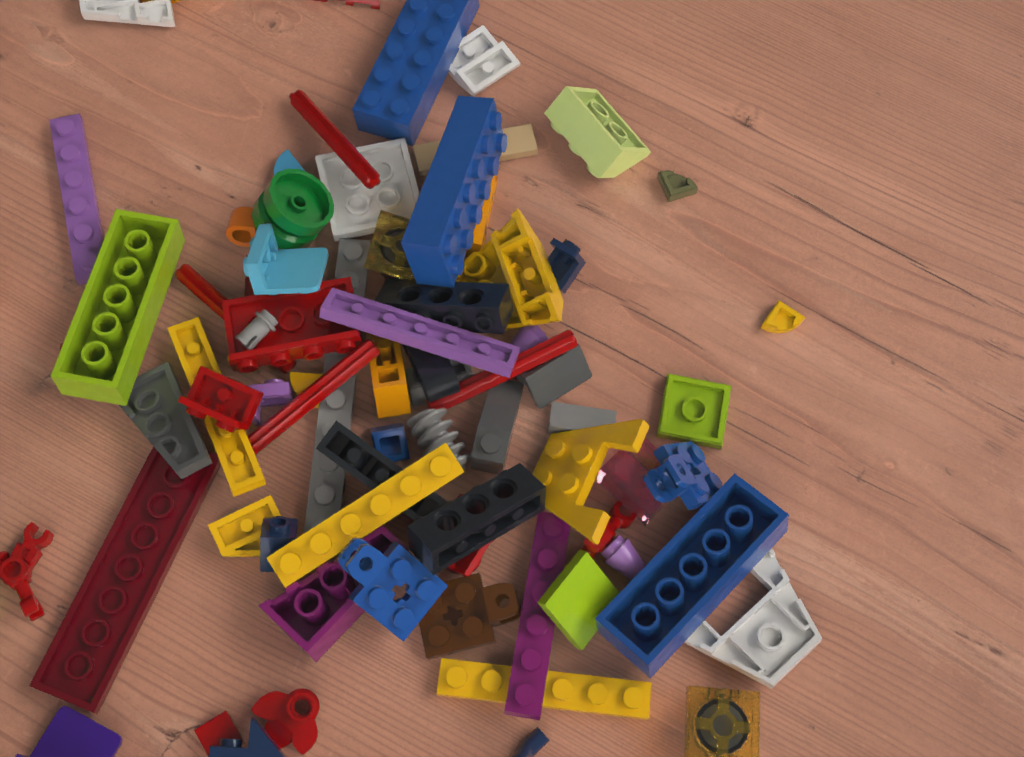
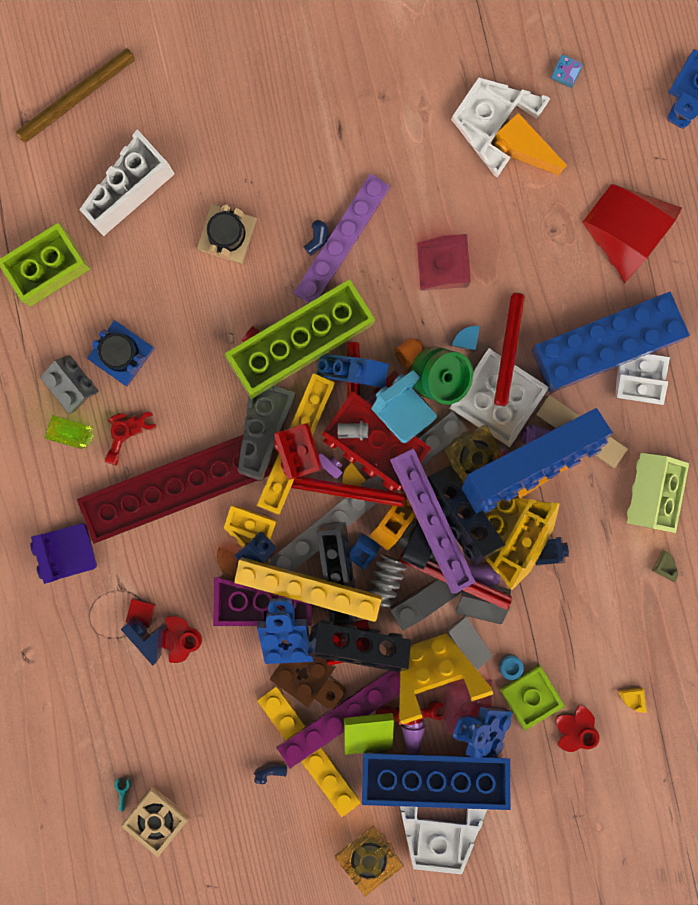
camera: 50 degrees right, 20 degrees up
(54, 212) = (320, 235): none -> dark blue arm
(198, 127) = (444, 263): none -> clear pink slope
(203, 282) = (353, 370): none -> blue slope
(259, 586) = (226, 561): none -> clear orange tile
(644, 404) = (511, 667): none -> dark azure tile
(763, 397) = (575, 727): none -> red plate

